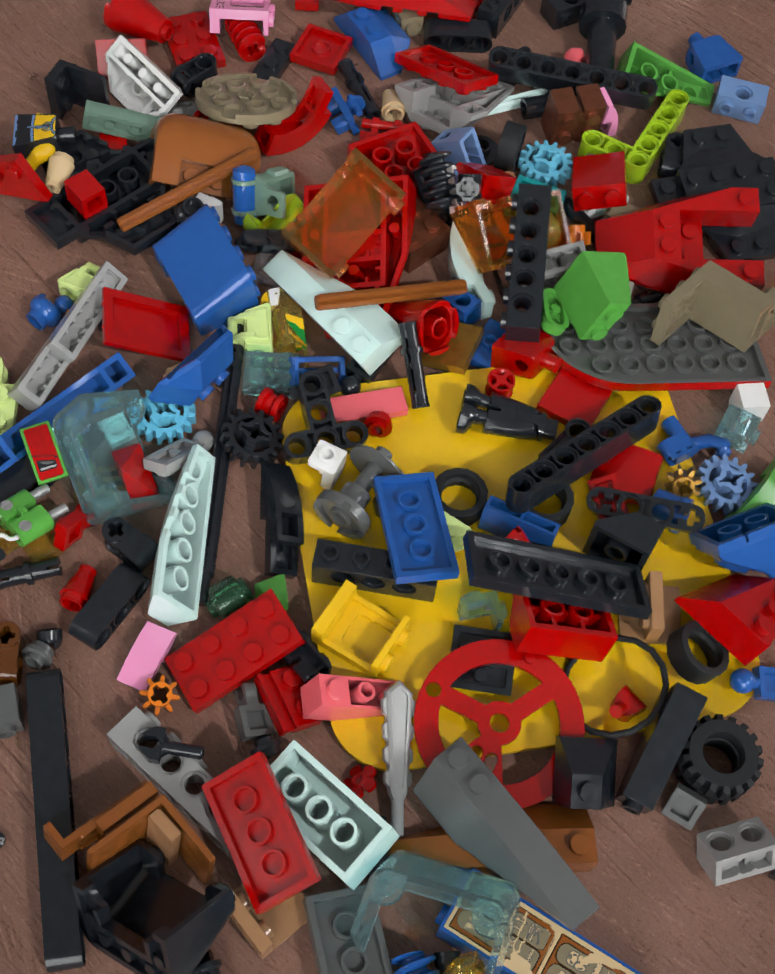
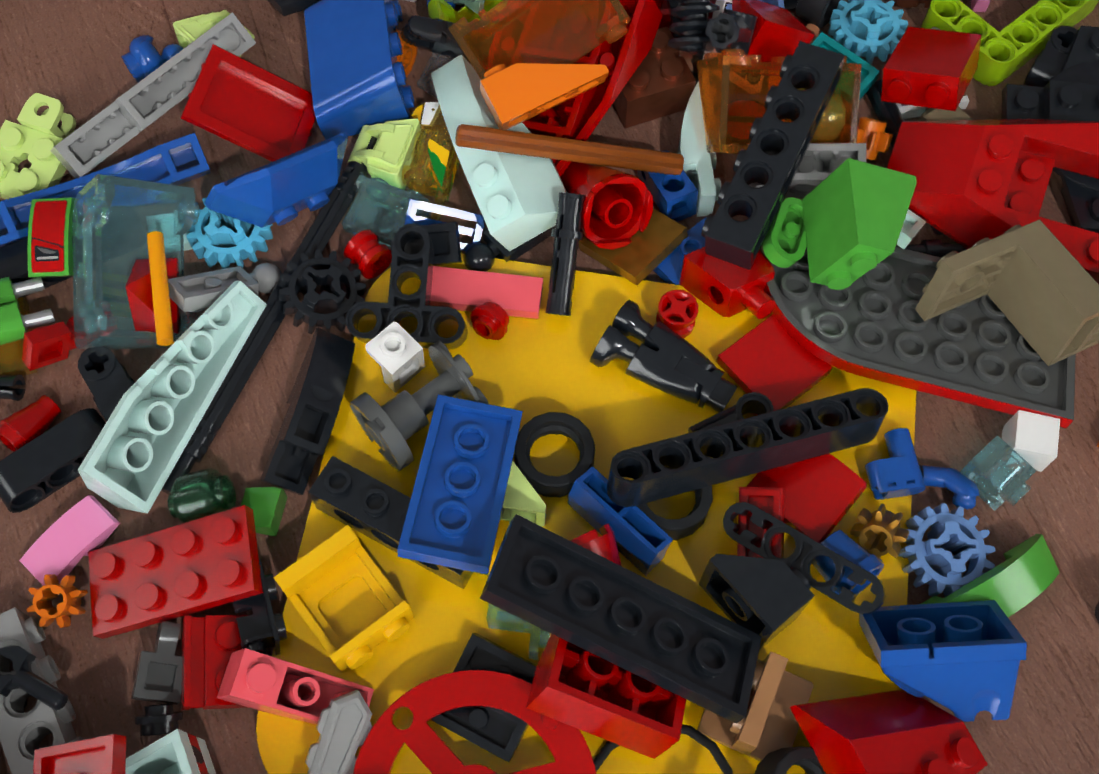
camera: 25 degrees right, 5 degrees up
(143, 464) = (160, 289): none -> light orange bar
(354, 258) = (532, 88): none -> orange slope

